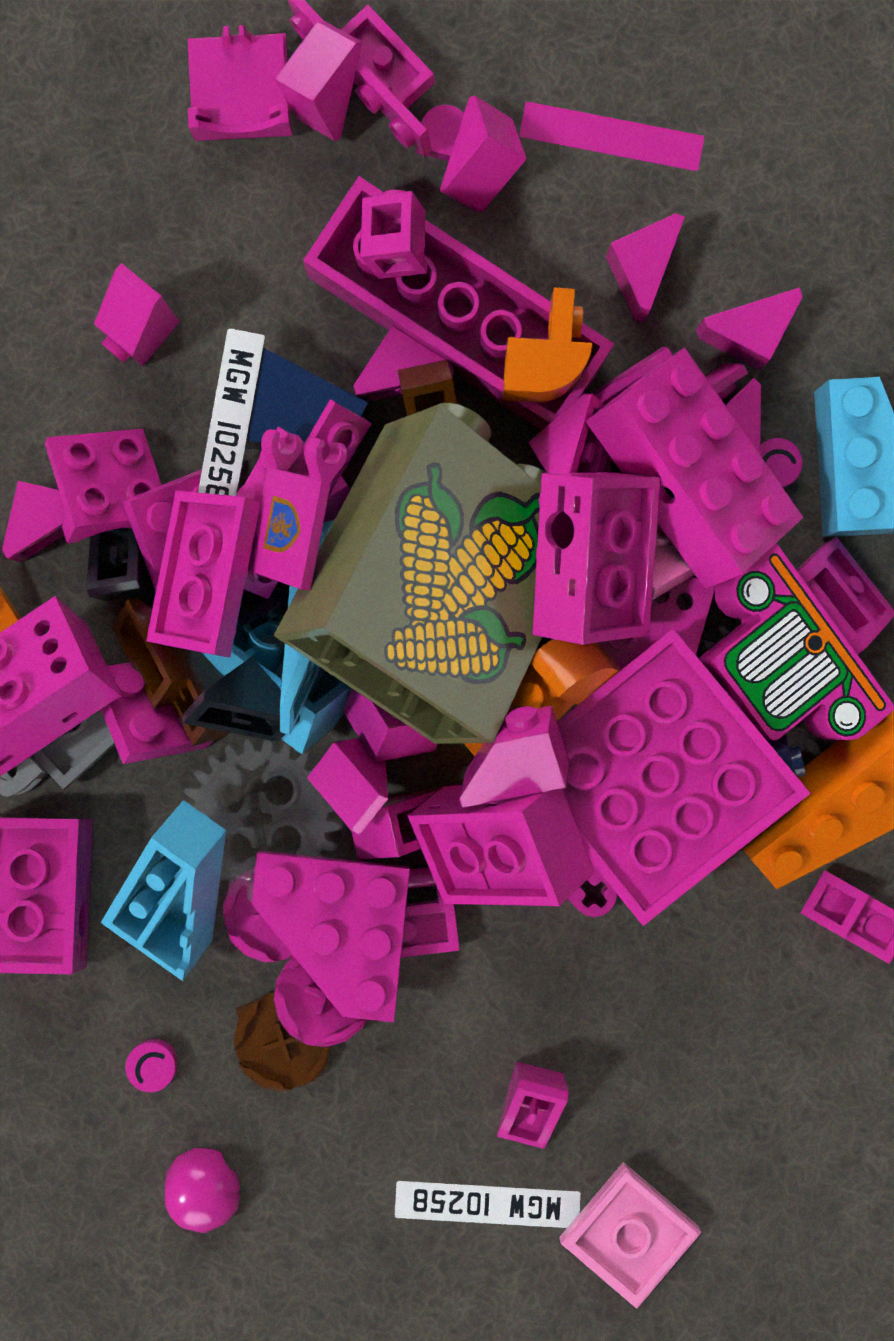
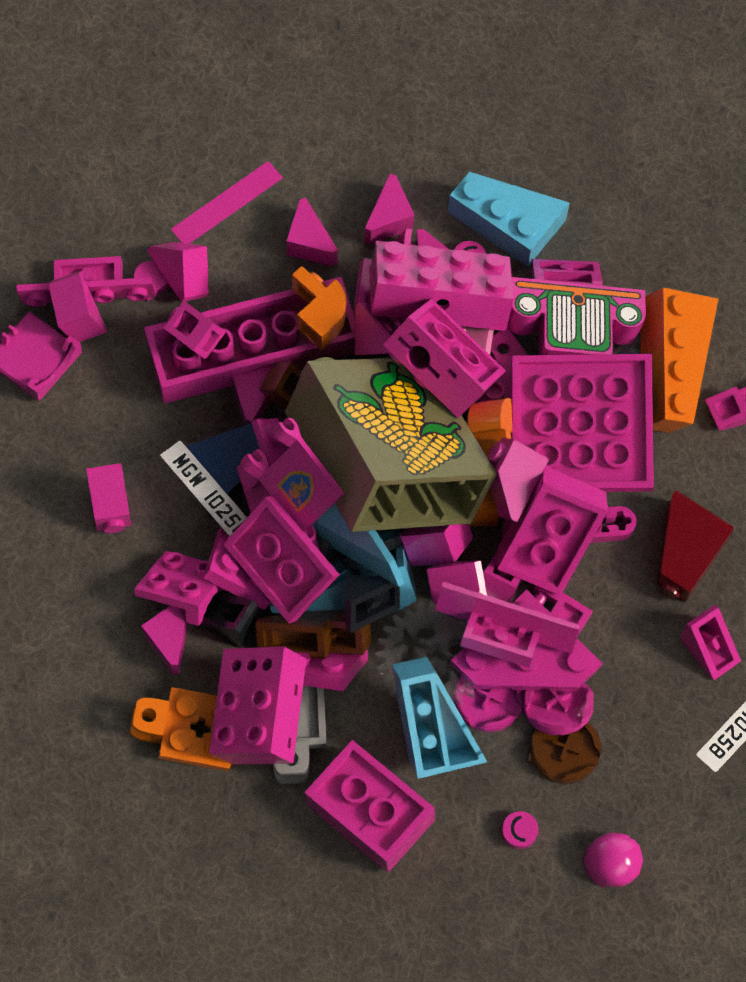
camera: 50 degrees left, 20 degrees down
(325, 894) = (504, 627): none -> dark pink bracket
(626, 994) = (688, 546): none -> dark red slope

